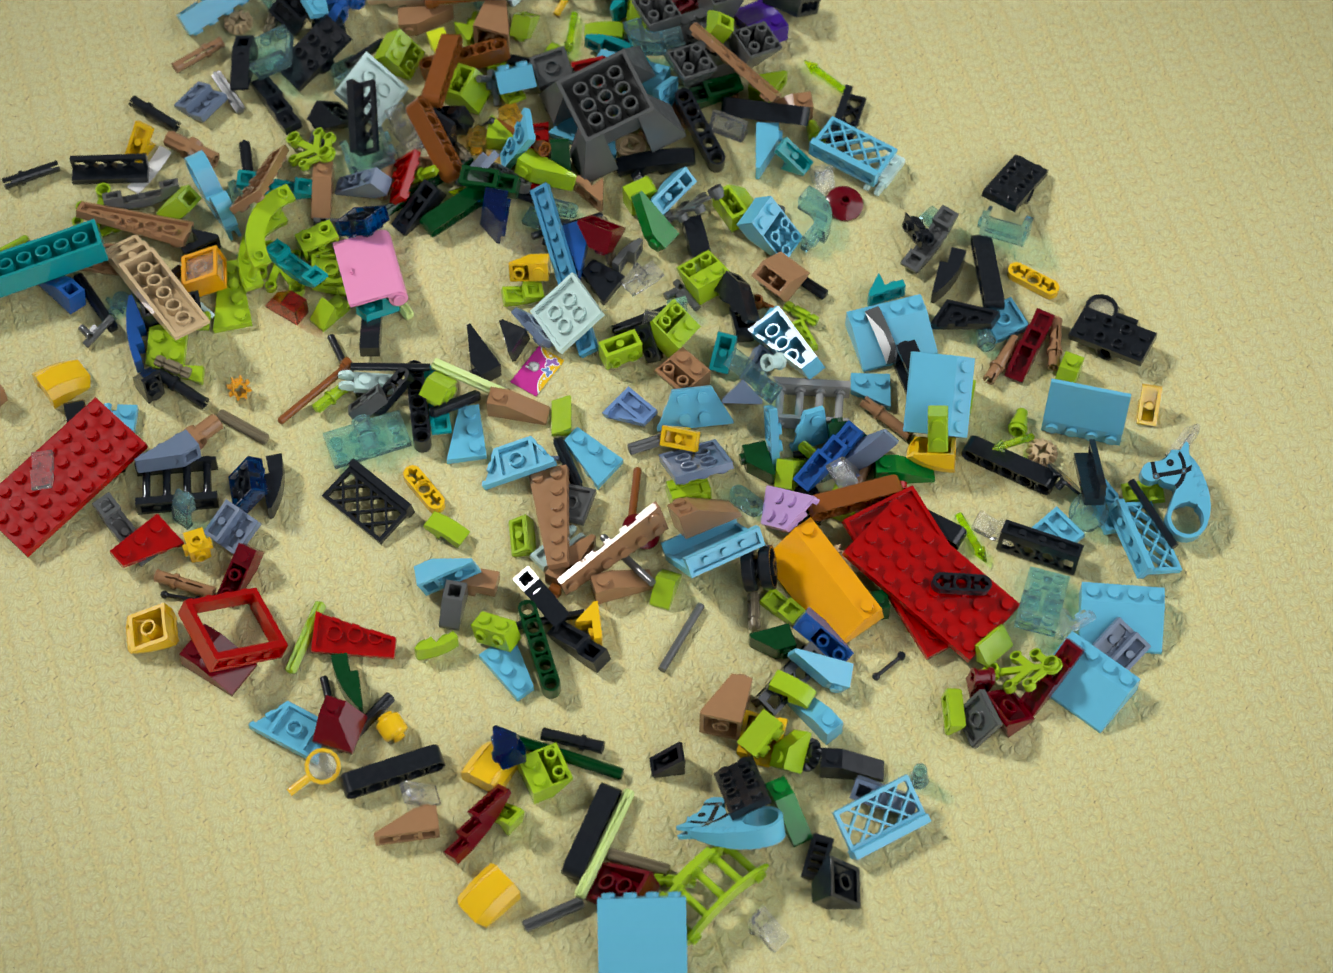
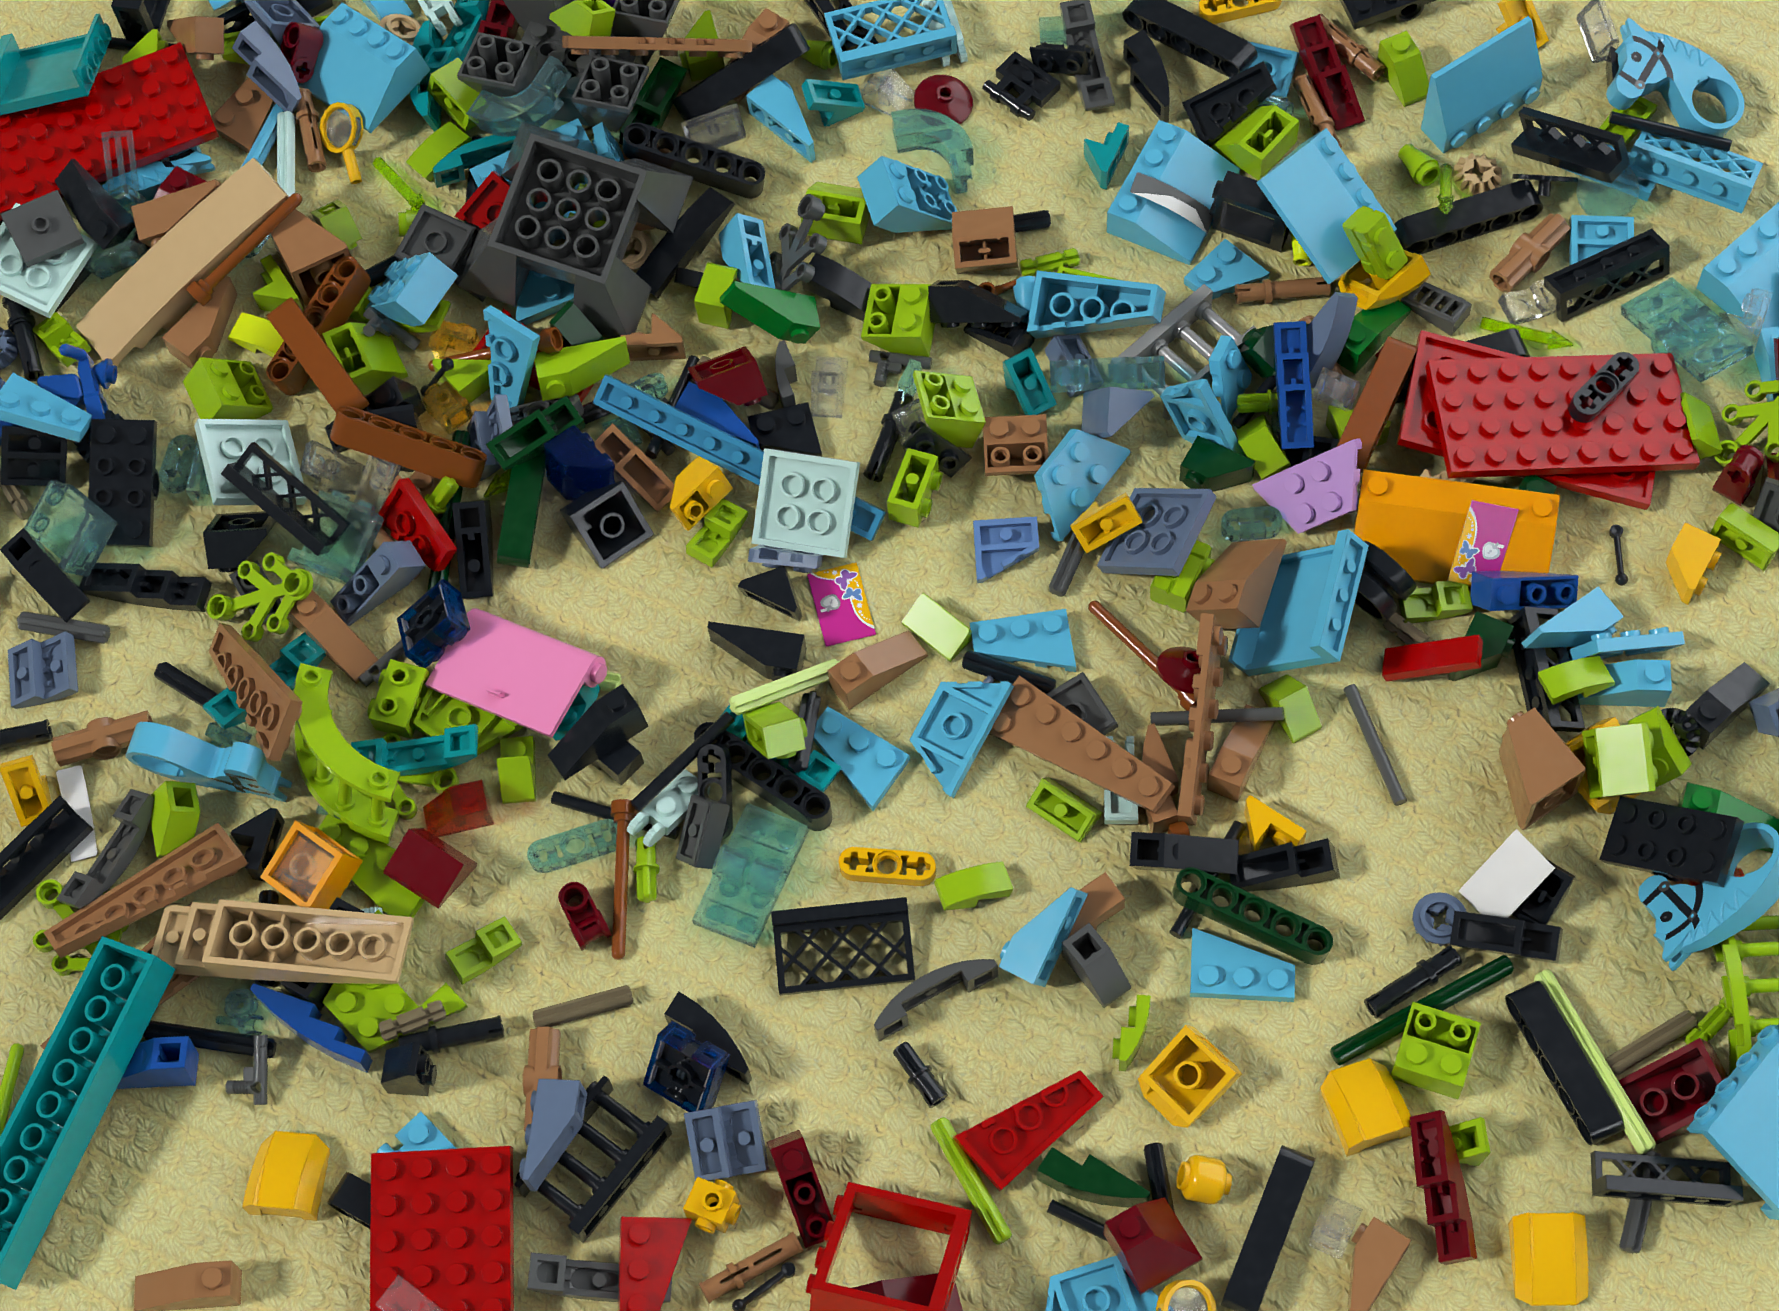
camera: 40 degrees left, 5 degrees up
(182, 508) = (643, 1177): clear light blue slope -> none
(228, 368) = (484, 951): none -> lime slope
(242, 391) = (524, 965): light orange gear -> none
(249, 314) = (428, 866): none -> dark red slope
(282, 393) = (585, 919): none -> dark red piece
(311, 355) = (562, 839): none -> clear light blue beam
(335, 578) = (920, 1075): none -> black axle
(354, 545) = (970, 972): none -> dark grey slope
(371, 49) = (185, 427): black piece -> none
(374, 322) = (598, 731): none -> black slope
(437, 683) = (1187, 1077): none -> yellow slope
(461, 151) = (455, 433): dark tan axle -> none
(481, 247) = (607, 522): none -> black slope
(496, 631) = (1184, 945): lime brick -> none
(507, 748) = (1375, 1062): clear blue slope -> none
(520, 232) = (636, 468): none -> medium nougat slope
(563, 914) = (1661, 1187): none -> black fence
(622, 722) = (1433, 905): none -> sand blue gear
(632, 761) = (1506, 936): none -> black slope
(659, 738) = (1507, 877): none -> white sticker
(745, 623) = (1432, 658): none -> red tile
(769, 362) = (1108, 337): light aqua bush -> none
(826, 596) = (1482, 540): none -> sticker
(853, 712) = (1629, 641): none -> medium azure wing
(891, 227) = (1025, 78): none -> black plate
(915, 696) = (1689, 559): none -> yellow slope
(947, 502) = (1445, 322): none -> dark grey slope
(959, 343) = (1259, 140): none -> lime slope
(1018, 505) = (1529, 252): none -> medium nougat piece

